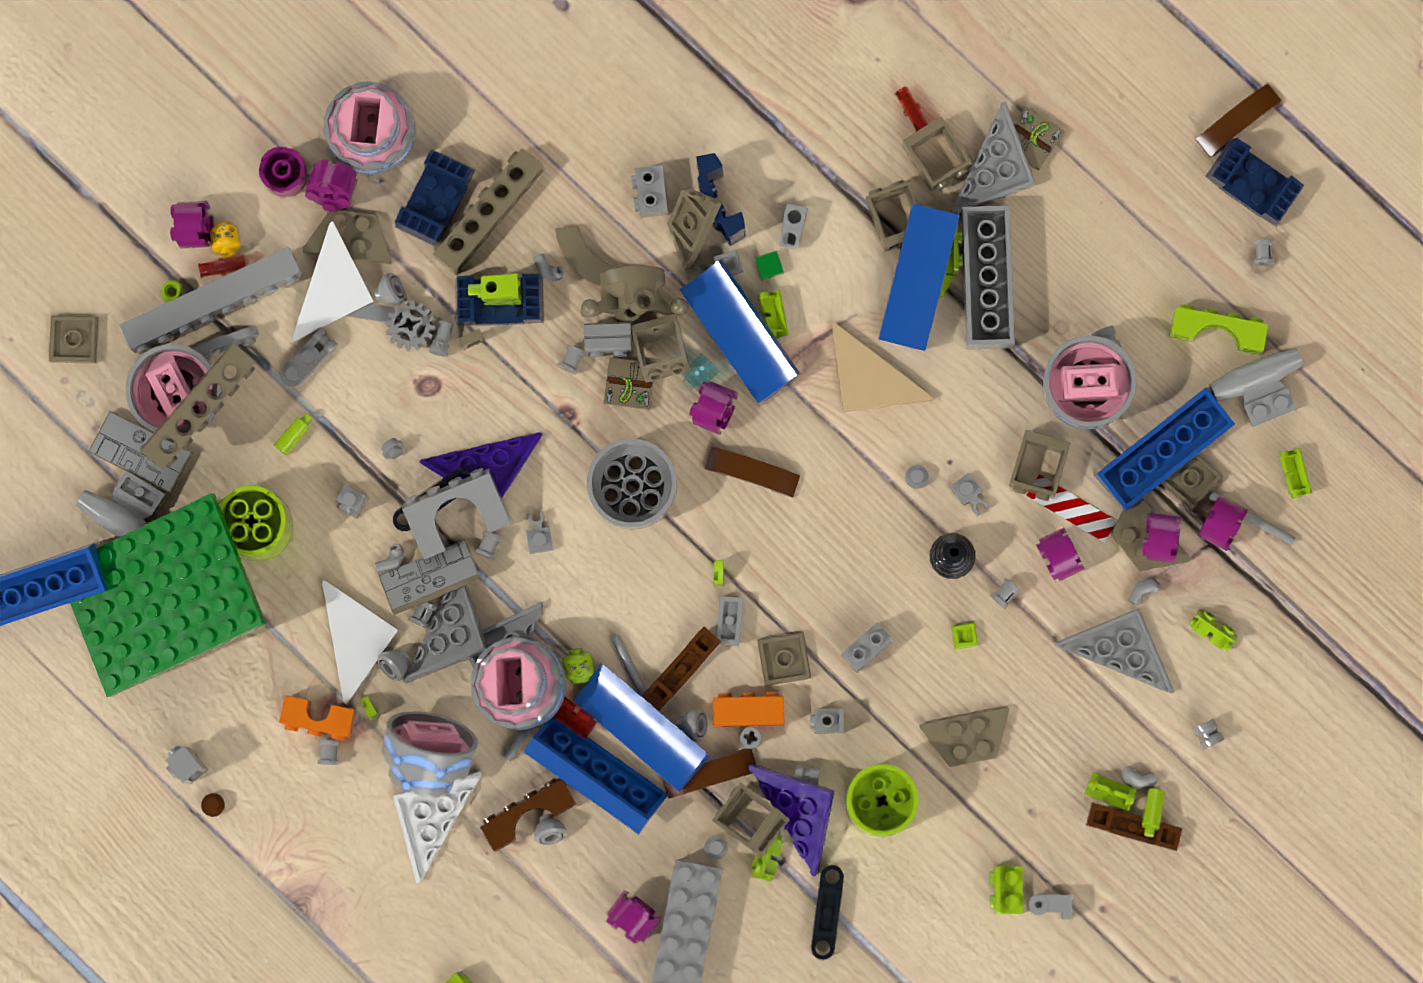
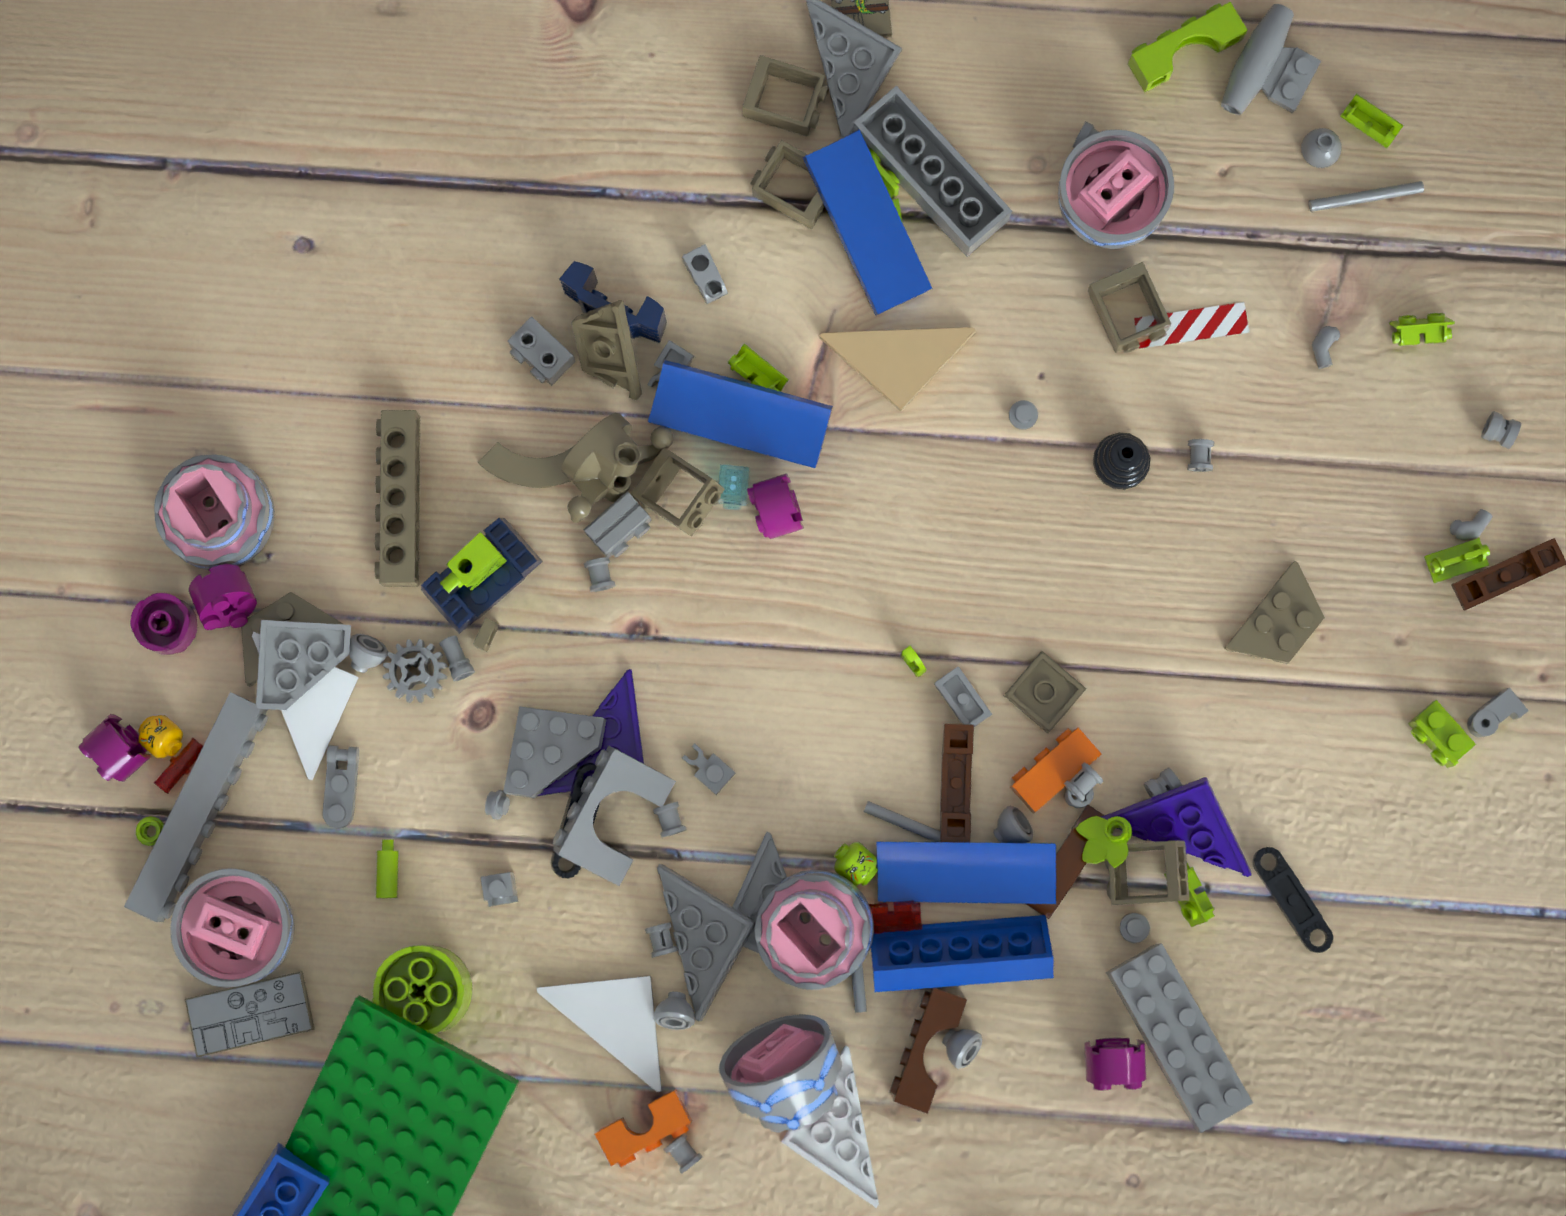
camera: 45 degrees left, 0 degrees up
(73, 339) = (90, 959): dark tan tile -> none
(129, 508) = (284, 1076): light grey plate -> none
(153, 447) = (259, 1001): dark tan brick -> none
(244, 336) = (247, 835): light grey plate -> none
(344, 259) = (296, 658): none -> light grey plate
(369, 707) = (689, 1076): lime tile -> none
(376, 313) = (371, 686): light grey sticker -> none
(393, 561) = (588, 910): light grey arm -> none
(429, 577) = (640, 899): light grey tile -> none
(435, 198) = (335, 528): dark blue plate -> none
(452, 440) = (548, 748): none -> light grey plate
(547, 271) = (504, 509): light grey arm -> none
(620, 455) = (760, 605): light grey wheel -> none
(627, 385) = (673, 554): dark tan tile -> none
(739, 776) = (1101, 842): none -> lime plate
(752, 471) = (863, 538): reddish brown slope -> none
(757, 731) = (1083, 782): none -> light grey bush
(769, 265) = (713, 330): green tile -> none
(836, 725) = (1147, 707): light grey brick -> none
(867, 647) = (1115, 615): light grey brick -> none
(899, 793) = (1281, 743): lime brick -> none
(911, 108) = (724, 73): clear red pin -> none
(964, 635) = (1195, 527): lime tile -> none
(967, 492) = (1082, 389): light grey plate -> none
(1061, 555) = (1223, 374): magenta brick -> none
(1121, 646) = (1351, 415): light grey tile -> none
(1130, 533) = (1283, 295): dark tan wing -> none
(1153, 811) = (1513, 545): lime cylinder -> none
(1163, 537) = (1306, 278): magenta brick -> none
(1164, 449) = (1232, 197): blue arch -> none
(1192, 482) = (1277, 206): dark tan tile -> none
(1222, 522) = (1346, 220): magenta brick -> none
(1250, 464) = (1321, 148): none -> light grey brick

